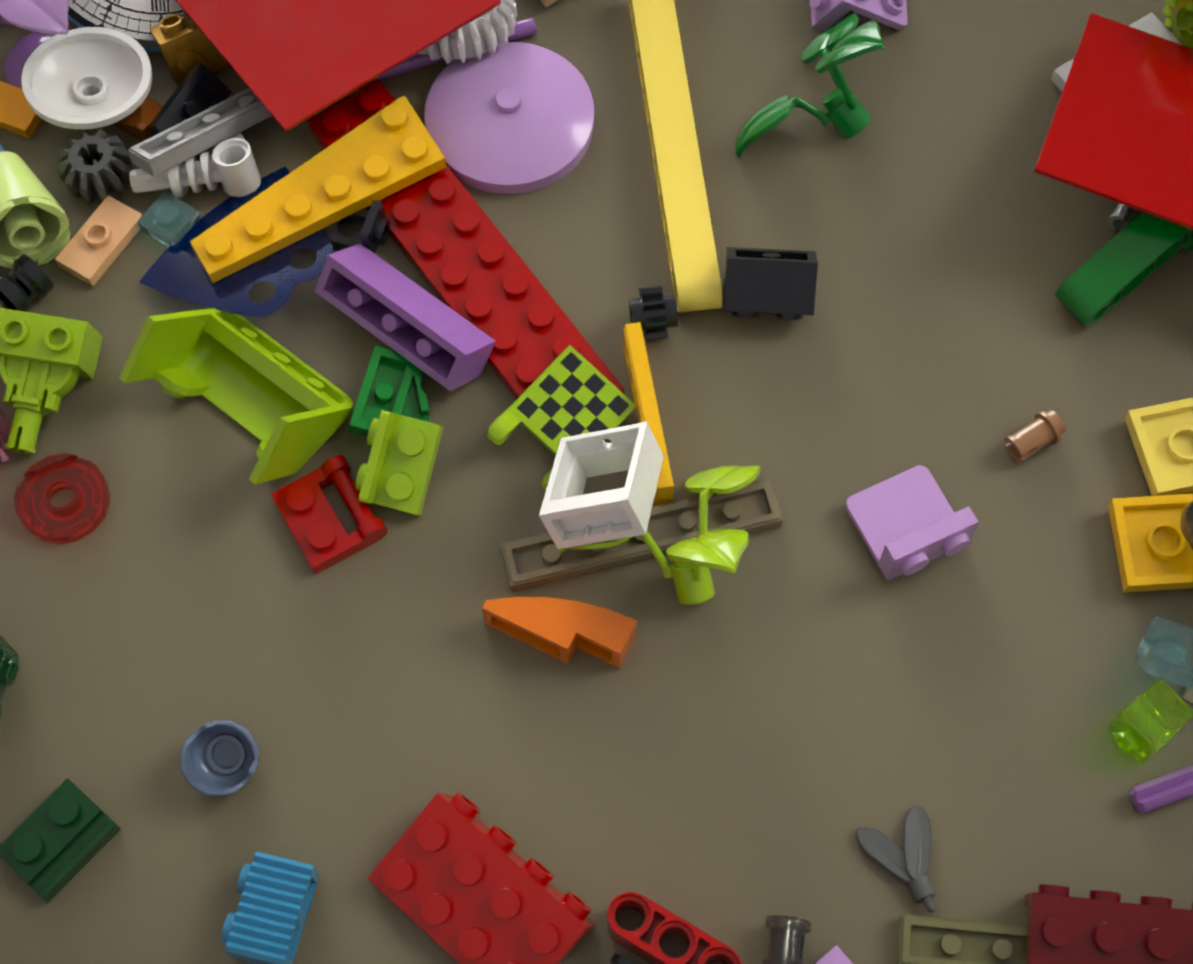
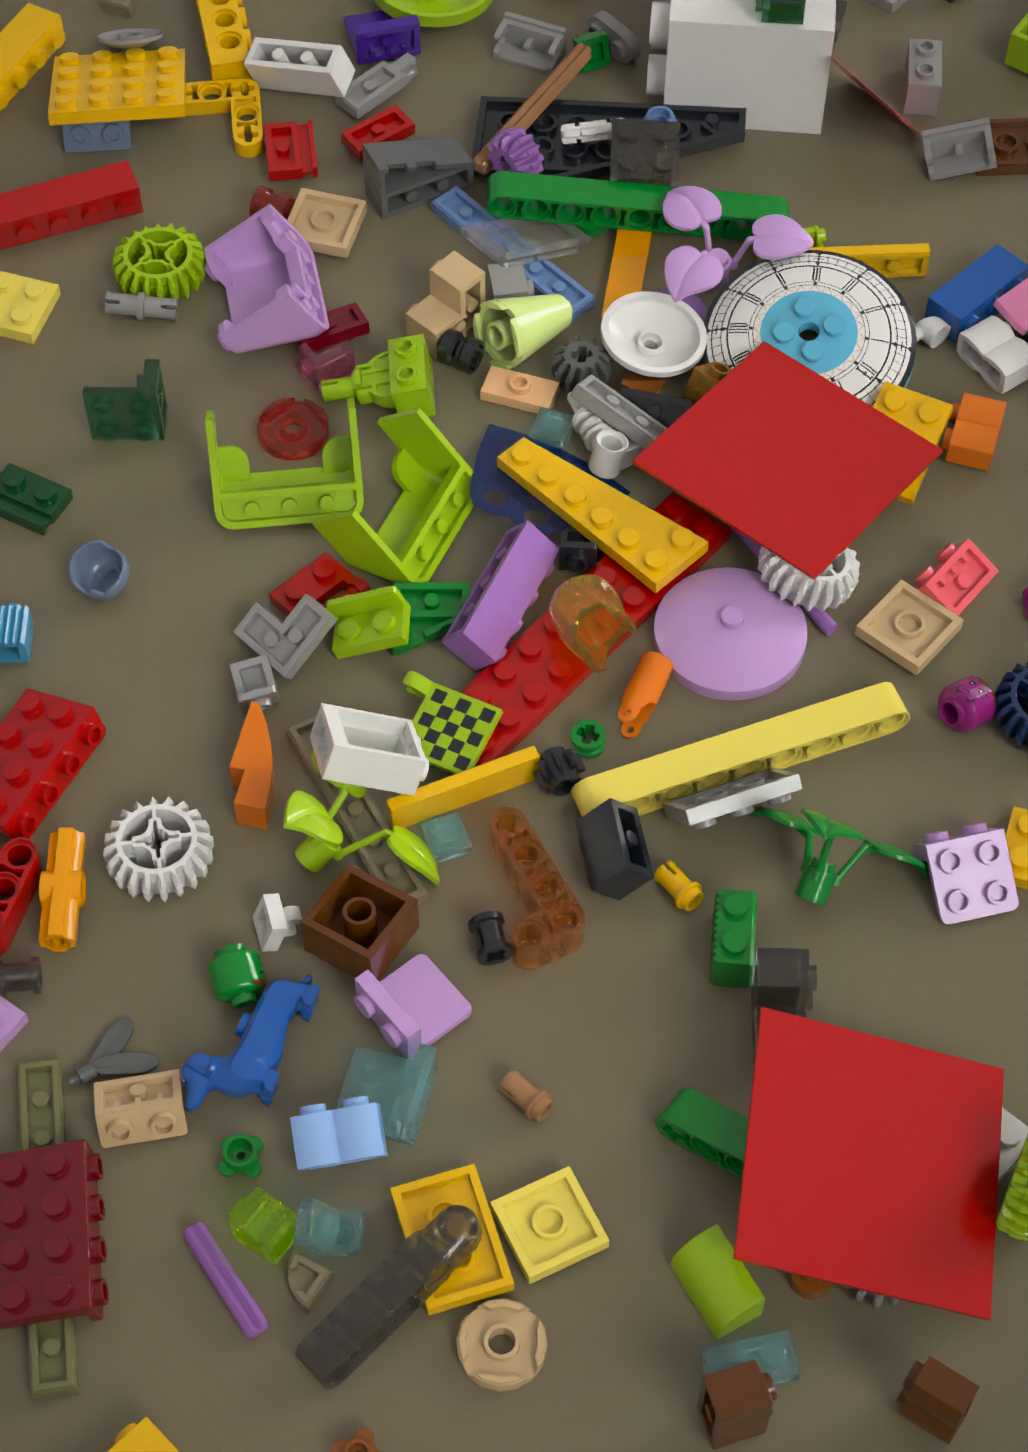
camera: 75 degrees right, 10 degrees down
(167, 511) = (287, 495): none -> lime windscreen
(398, 557) = (289, 641): none -> light grey plate
(444, 606) = (255, 682): none -> light grey bracket
(471, 230) = (589, 618): none -> clear yellow hair
(567, 212) = (644, 691): none -> orange piece
(606, 269) = (593, 749): none -> green bush
(666, 755) = (133, 846): none -> white gear
(676, 876) = (62, 889): none -> light orange piece
(698, 448) = (446, 837): none -> clear light blue plate
(736, 155) = (733, 797): none -> light grey plate
(776, 644) = (274, 921): none -> white tile
(788, 377) = (529, 882): none -> clear orange beam
(811, 548) = (360, 923): none -> reddish brown brick
(819, 236) = (687, 894): none -> yellow pin
(837, 696) = (236, 975): none -> green head
(842, 428) = (490, 937): none -> black bush
(895, 201) = (733, 938): none -> green brick
(936, 688) = (260, 1050): none -> blue animal
(981, 831) = (140, 1108): none -> tan bracket
(986, 182) = (781, 983): none -> clear smoke brick
(1014, 565) = (396, 1084): none -> clear light blue bracket
(1064, 623) = (338, 1135): none -> light blue brick
(1067, 726) = (236, 1144): none -> green plate

